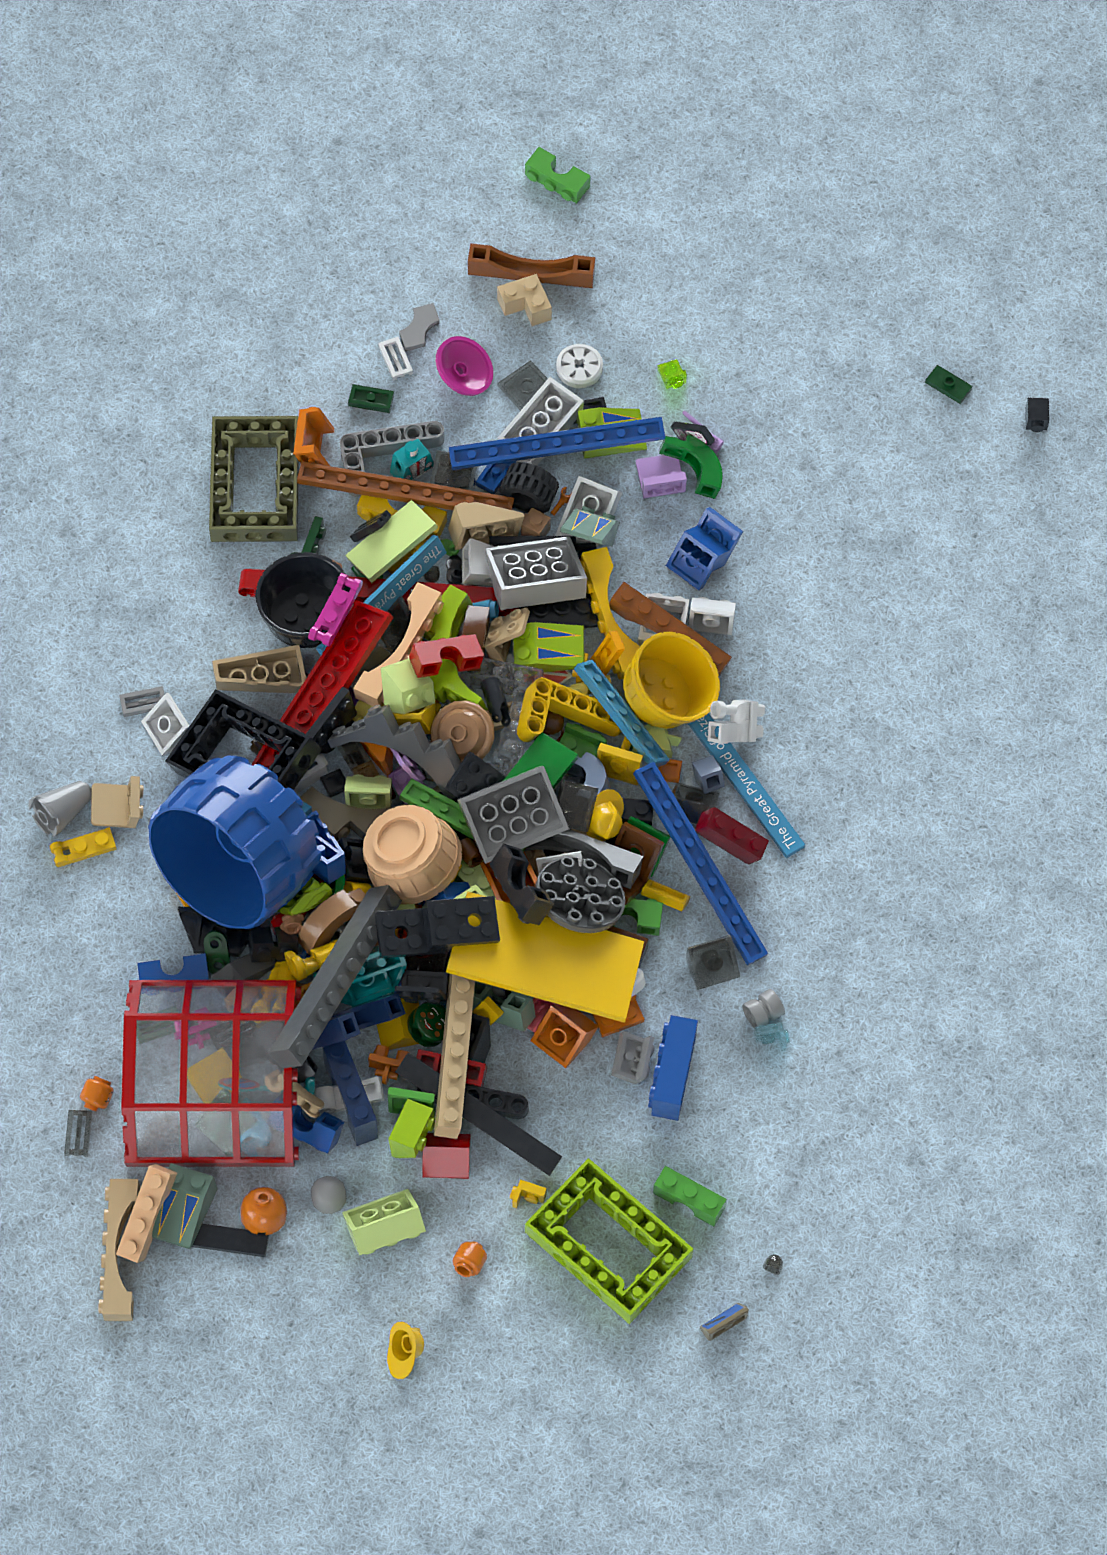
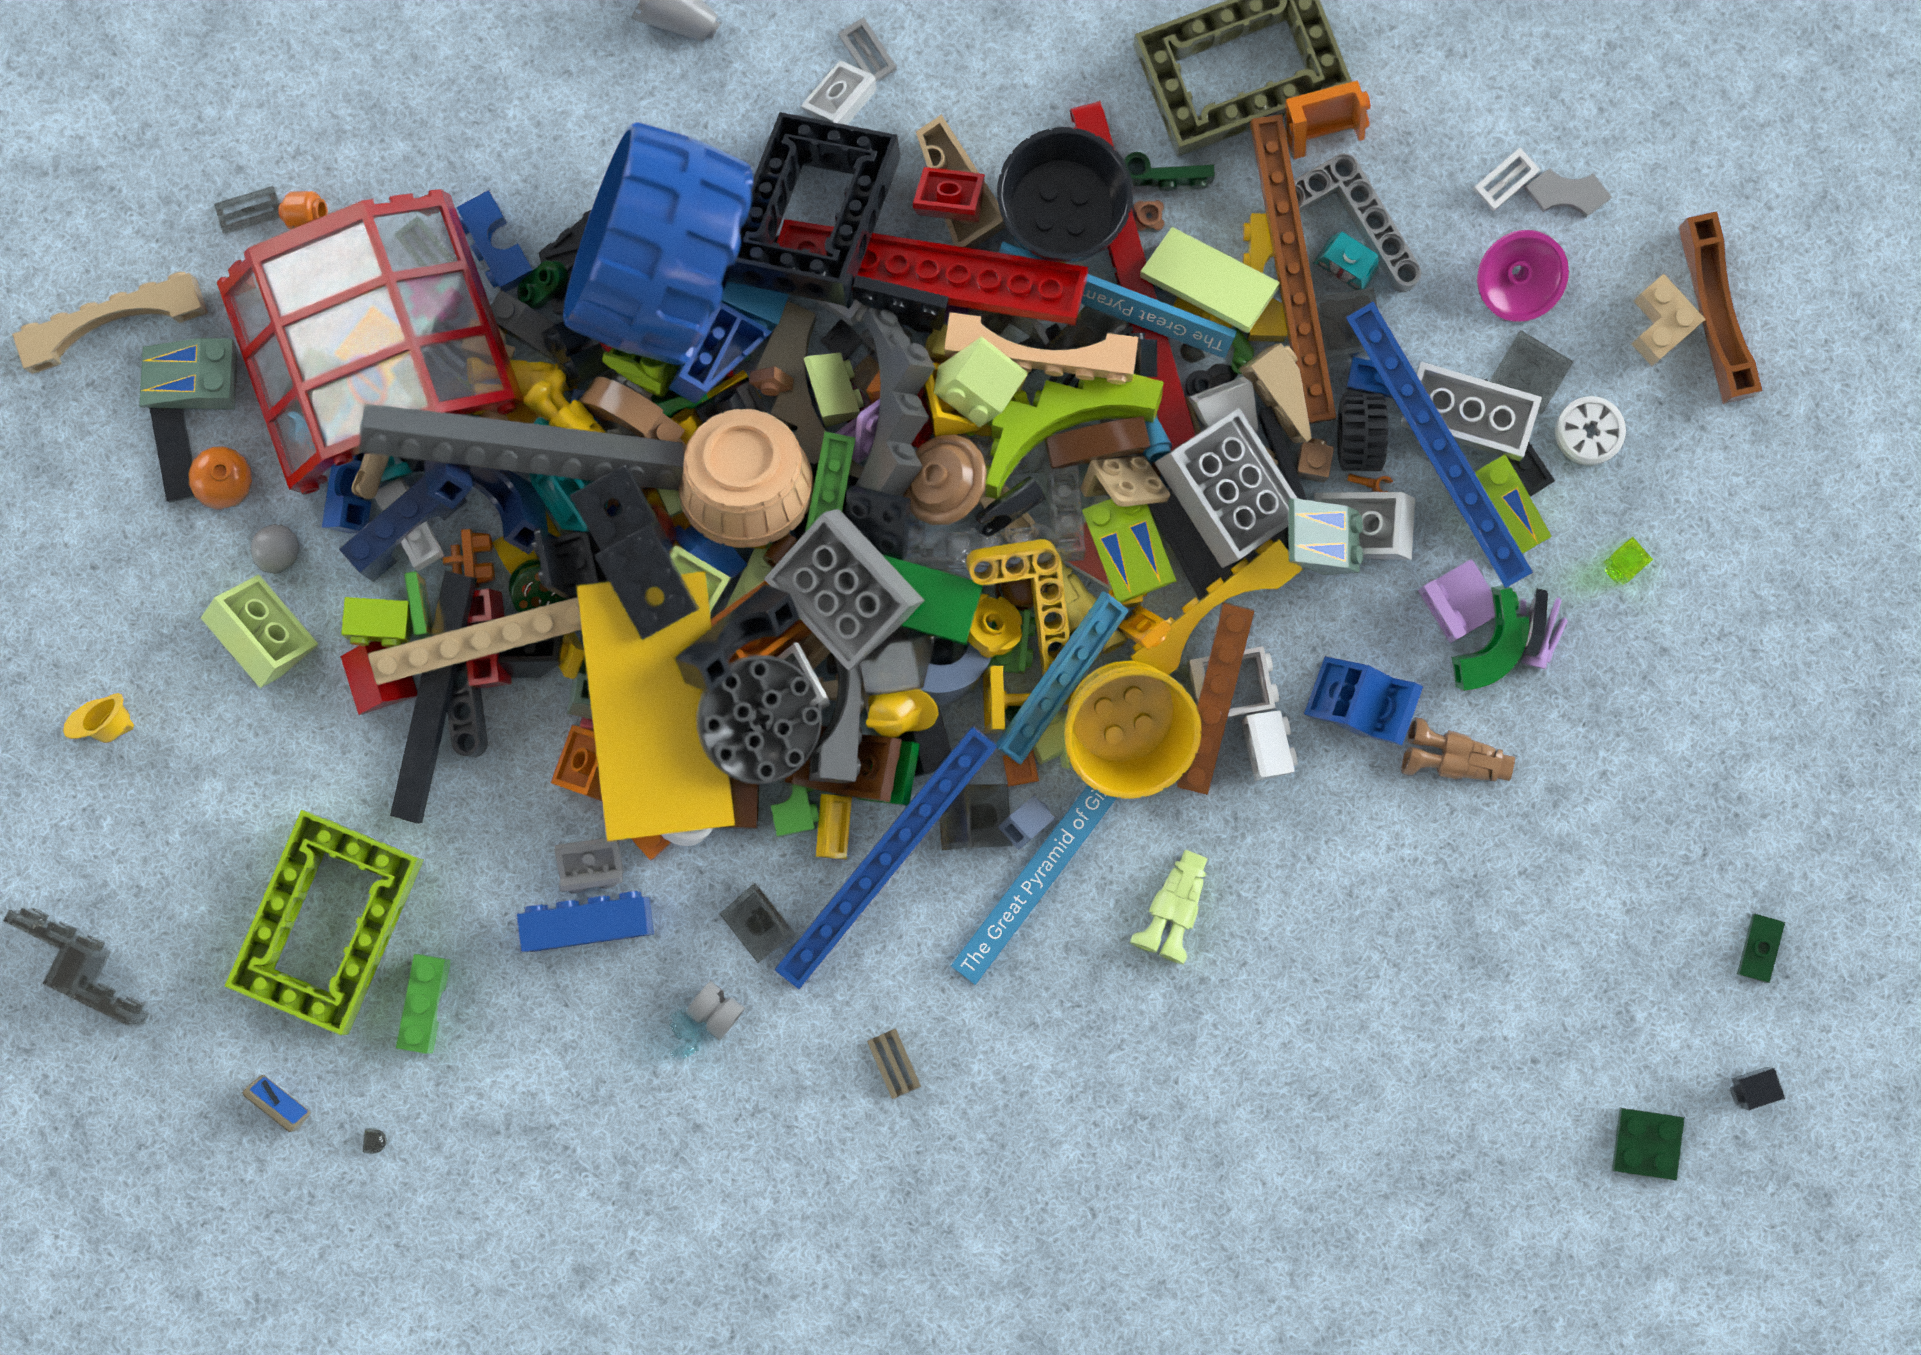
camera: 70 degrees right, 20 degrees up
(83, 847) = (635, 60): yellow plate -> none
(117, 804) = (704, 74): tan bracket -> none
(140, 1225) = (160, 332): light nougat arch -> none
(270, 671) = (949, 194): none -> red slope
(292, 924) = (600, 367): nougat plate -> none
(335, 610) = (1052, 244): dark pink plate -> none
(348, 825) = (771, 380): none -> nougat plate
(370, 526) = (1225, 241): black tile -> none
(371, 398) = (1429, 170): dark green plate -> none
(462, 650) = (1059, 434): arch -> none
(469, 1259) = (245, 756): orange head -> none
(532, 1193) = (361, 801): yellow bracket -> none
(569, 185) = (1876, 314): bright green arch -> none
(575, 741) = (1007, 632): none -> yellow plate
(577, 1416) = (77, 966): none -> clear smoke bracket
(731, 835) = (940, 885): dark red brick -> none
(742, 721) = (1108, 842): white hips -> none
(763, 509) = (1459, 757): none -> medium nougat piece
(798, 706) = (1177, 904): none -> yellowish green piece
(839, 905) = (904, 1087): none -> dark tan tile
(1051, 488) = (1648, 1143): none -> dark green plate

